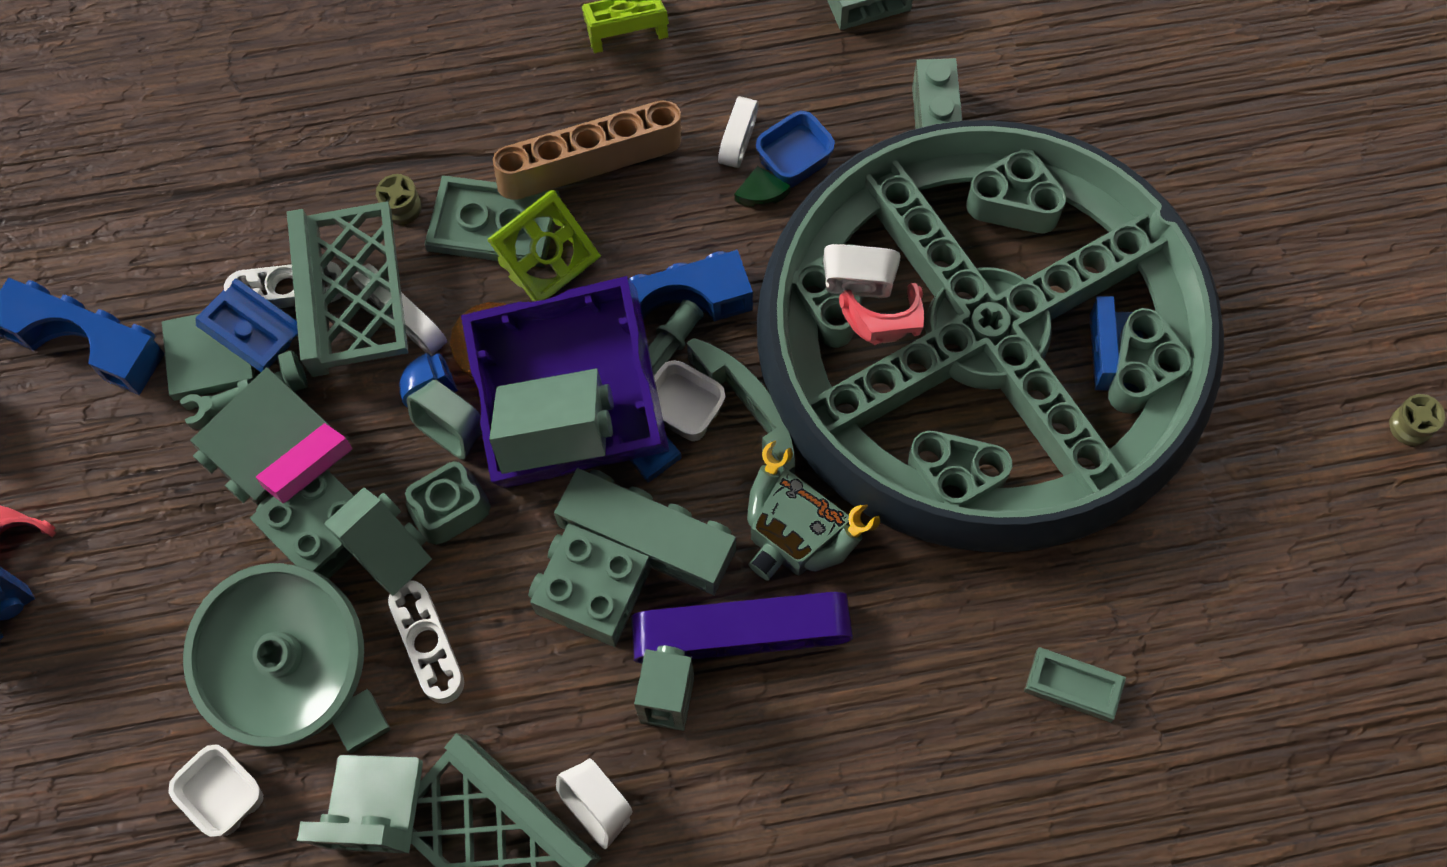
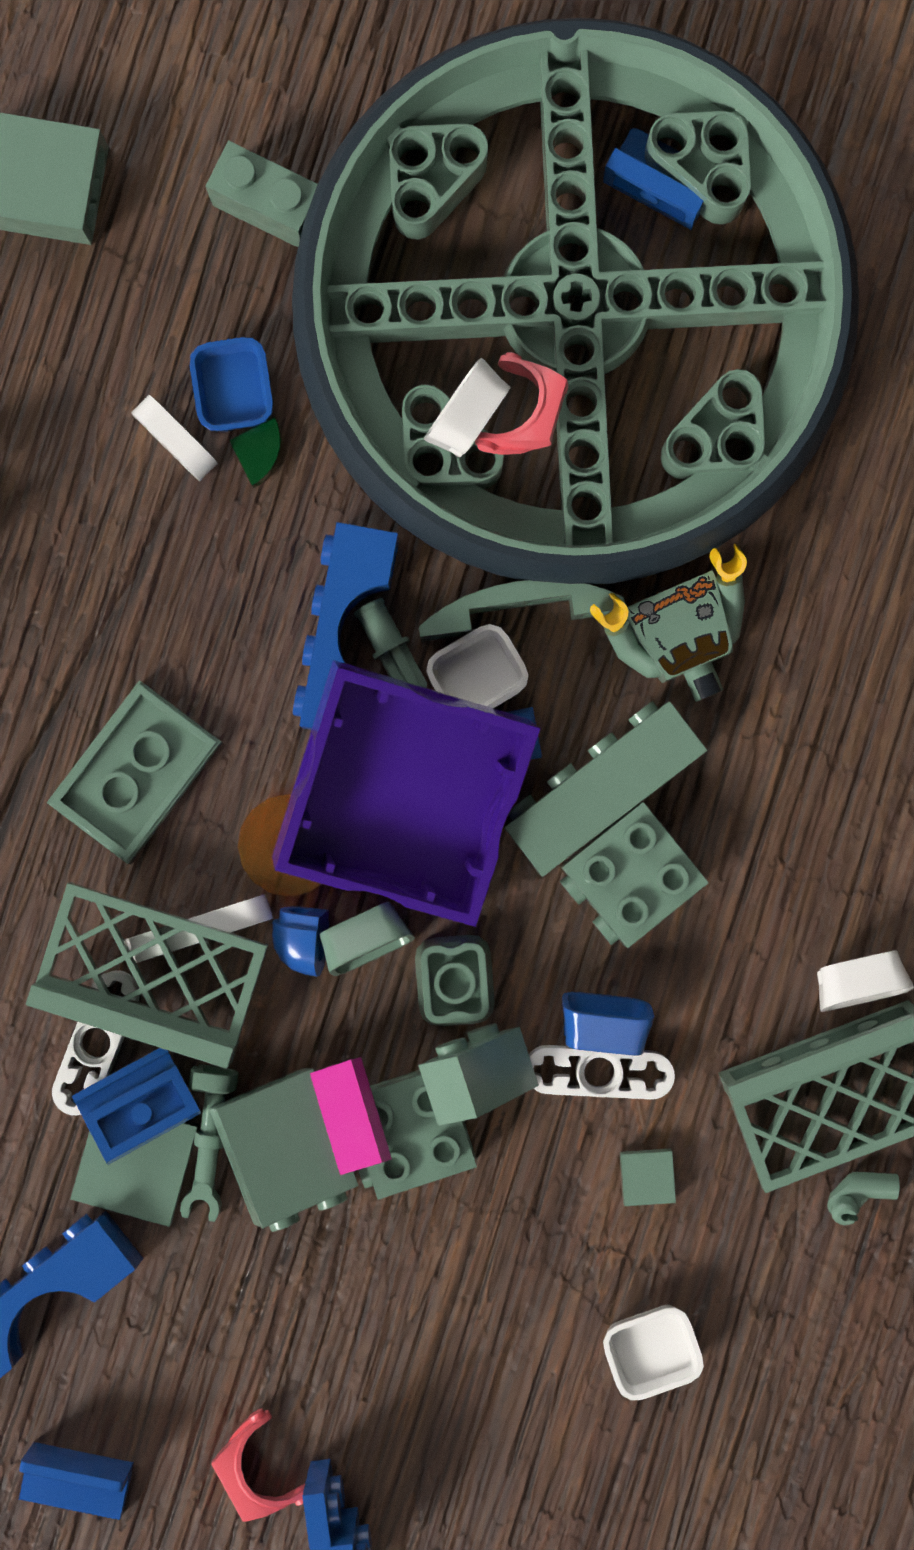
camera: 65 degrees left, 20 degrees up
(273, 655) = (541, 1236): sand green dish -> none
(369, 806) = (751, 1207): bracket -> none
(394, 189) = (38, 867): olive wheel -> none
(464, 619) = (606, 1023): none -> blue piece
(551, 421) = (449, 830): sand green brick -> none
(583, 250) = (240, 697): lime piece -> none
(587, 149) = (99, 600): medium nougat beam -> none
(664, 688) = (793, 856): sand green brick -> none
(745, 626) = (758, 745): dark purple beam -> none

